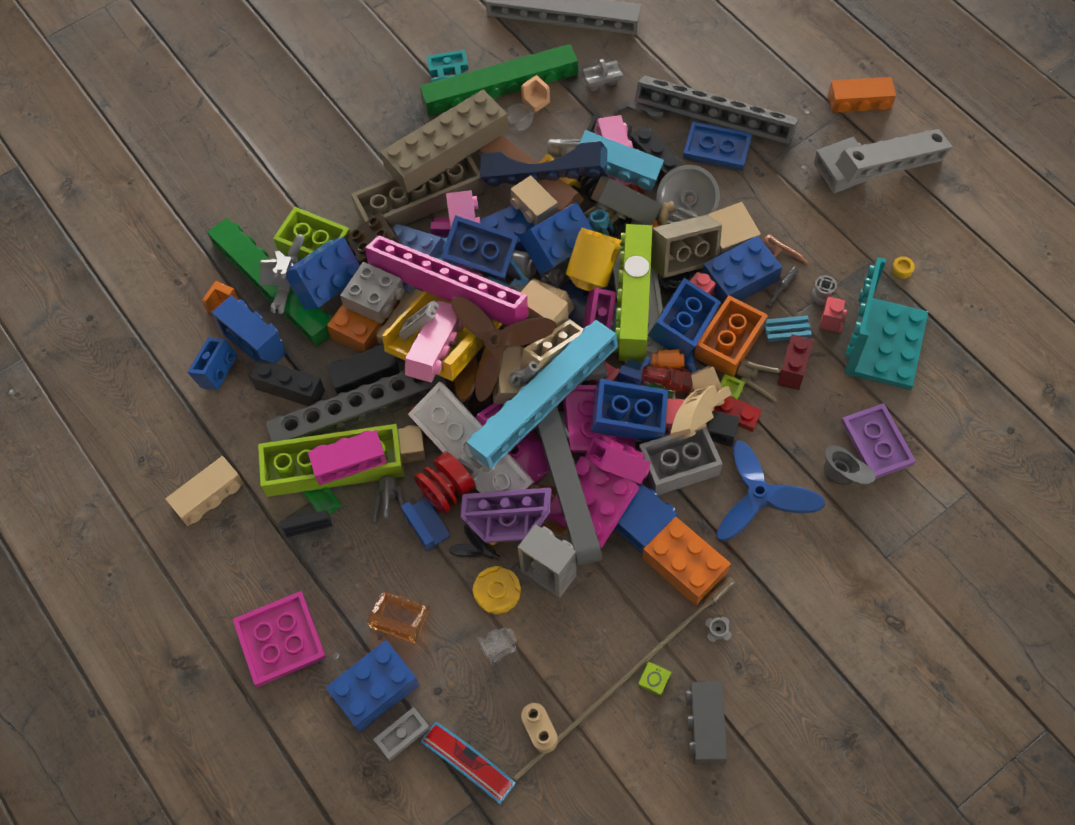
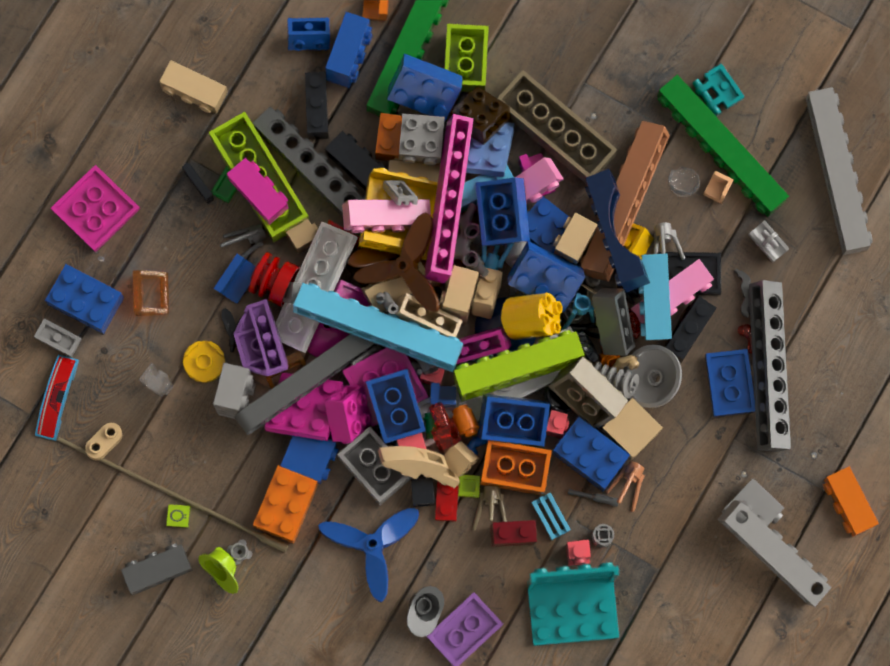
camera: 60 degrees right, 15 degrees up
(274, 273) = (409, 47): light grey piece -> none
(445, 141) = (609, 130): dark tan brick -> none
(636, 266) = (534, 357): white sticker -> none
(676, 117) = (745, 330): none -> clear red arm
(732, 653) = (221, 568): none -> lime piece
(902, 267) = (662, 601): yellow tile -> none

